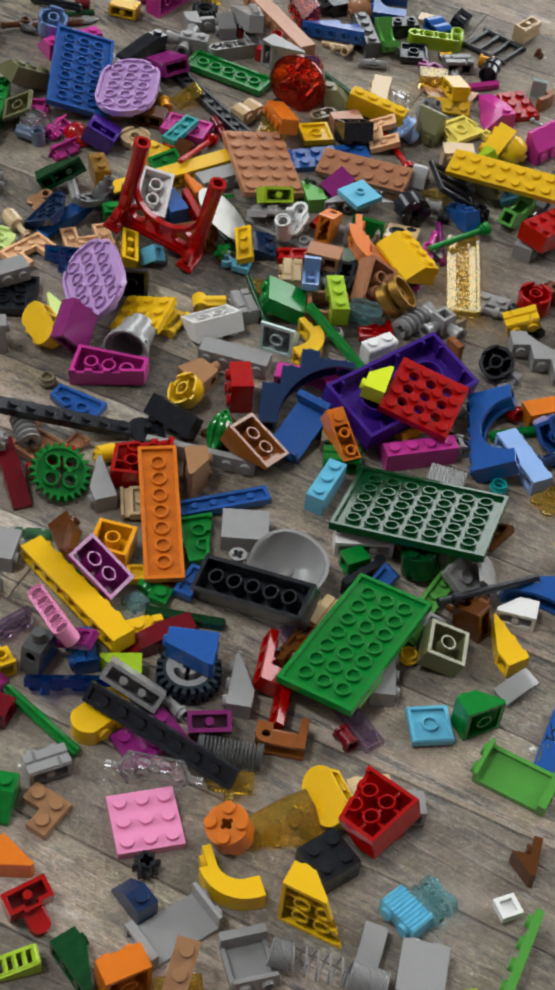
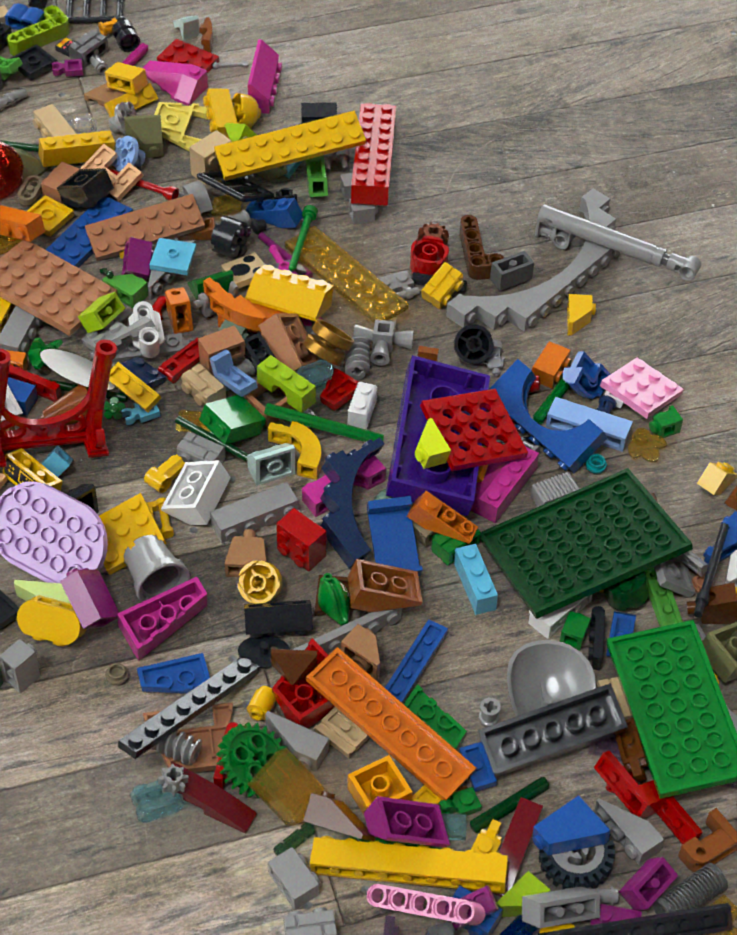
camera: 40 degrees left, 5 degrees up
(58, 494) = (285, 786): none -> clear yellow brick
(142, 435) = (293, 663): none -> reddish brown slope
(243, 528) = (462, 677): light grey brick -> none
(431, 76) = (84, 78): clear yellow brick -> none

